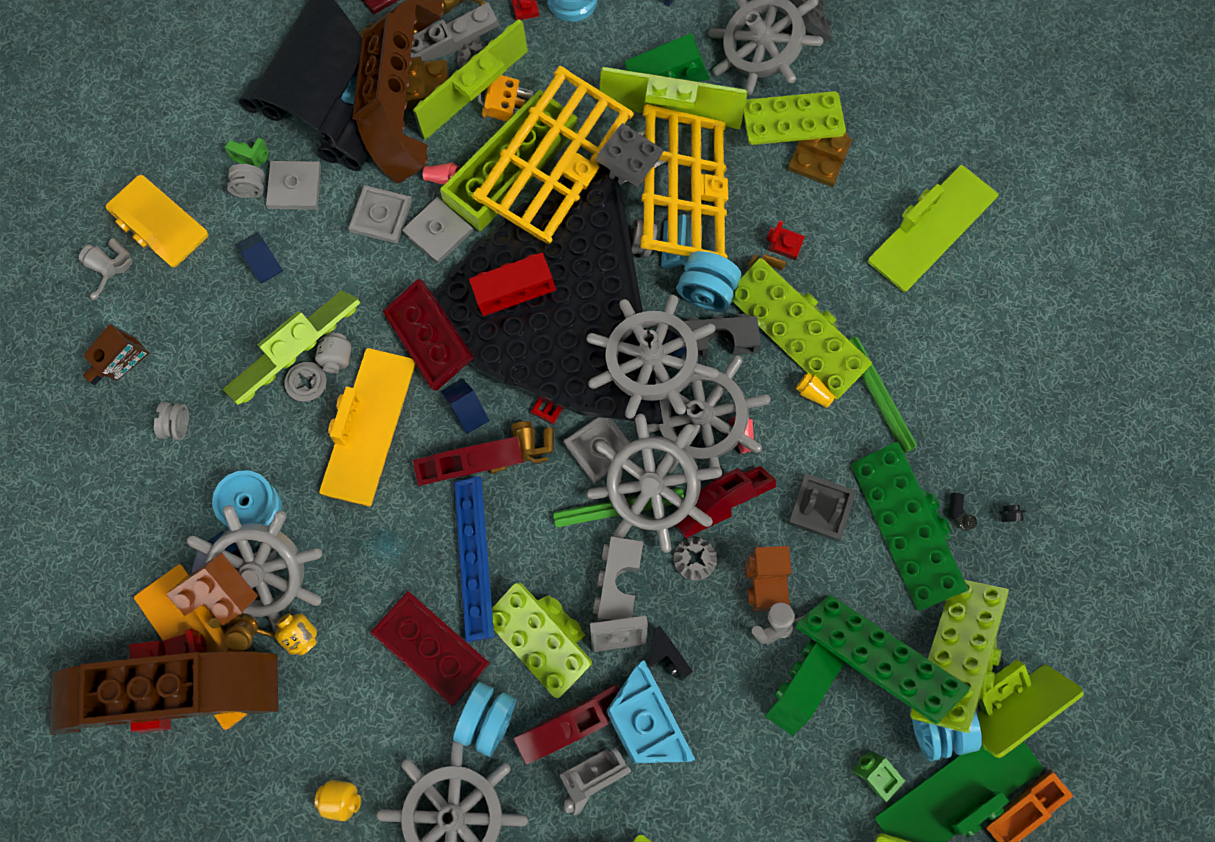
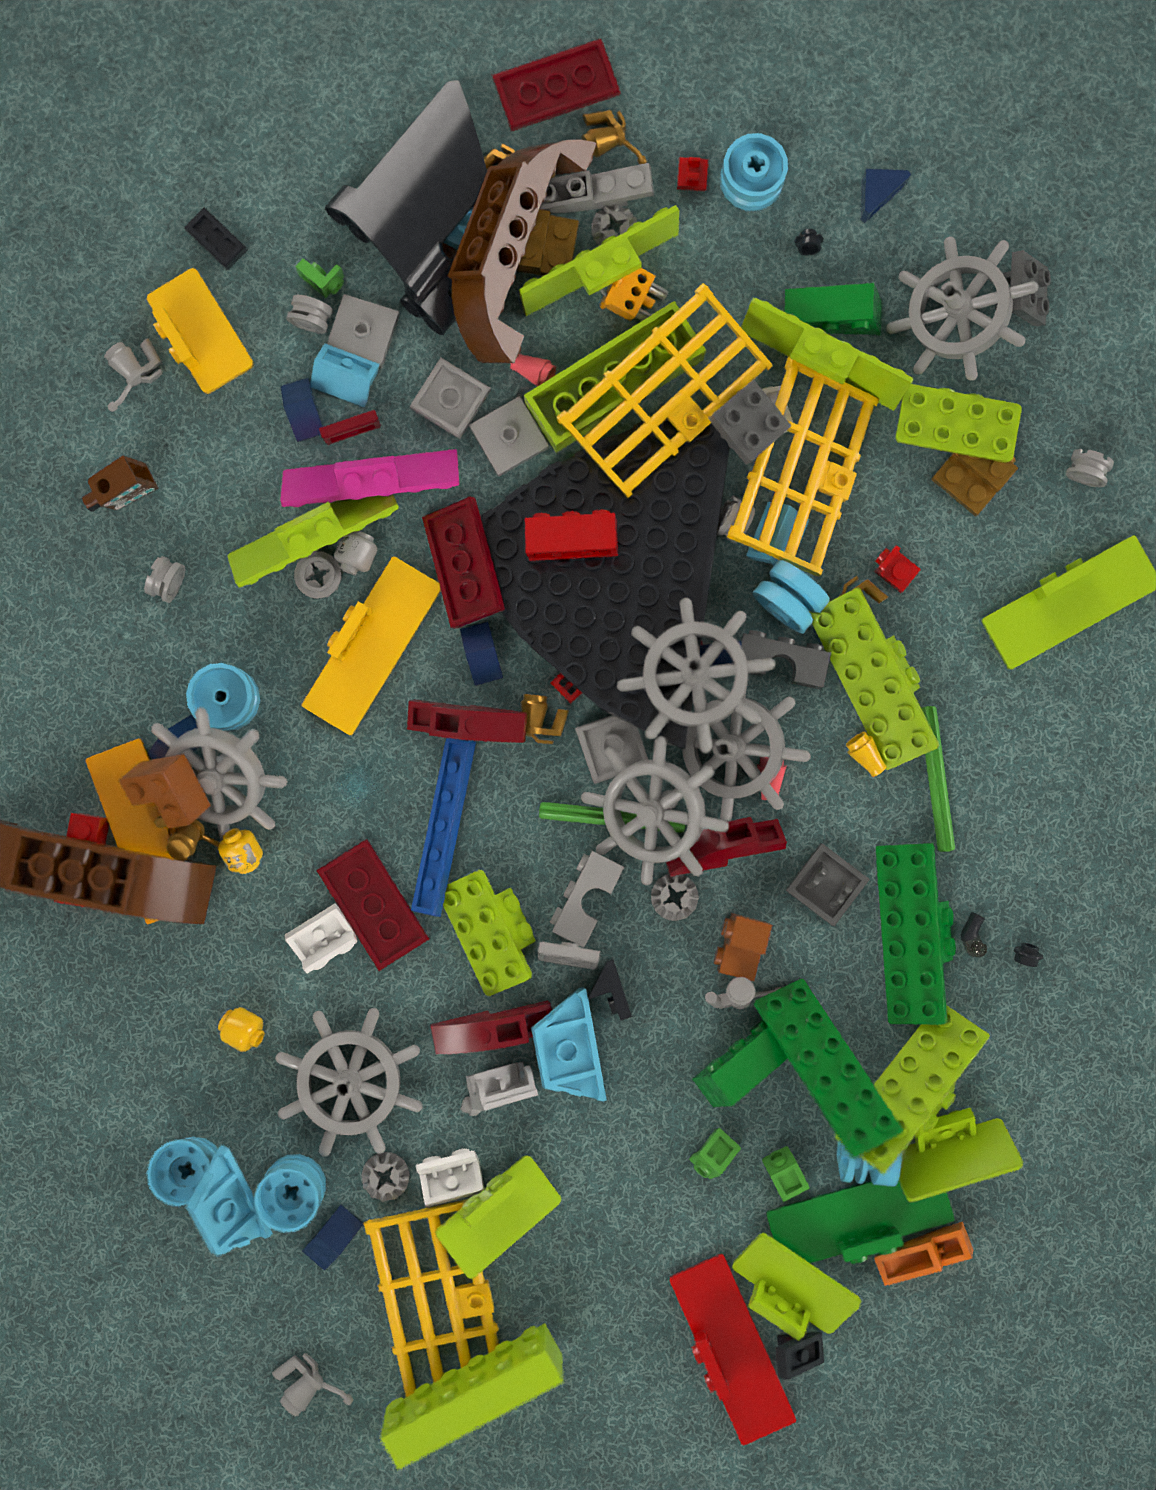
camera: 20 degrees right, 15 degrees up
(153, 148) = (215, 239): none -> black plate
(185, 643) = (125, 831): red bracket -> none
(286, 221) = (343, 375): none -> medium azure panel
(302, 257) = (350, 427): none -> dark red tile
(328, 285) = (369, 478): none -> dark pink bracket
(390, 691) = (321, 938): none -> white bracket
(482, 718) = (407, 999): medium azure wheel -> none
(630, 26) = (809, 242): none -> black plate
(809, 778) = (715, 1154): none -> bright green bracket
(907, 124) = (1089, 468): none -> light grey wheel

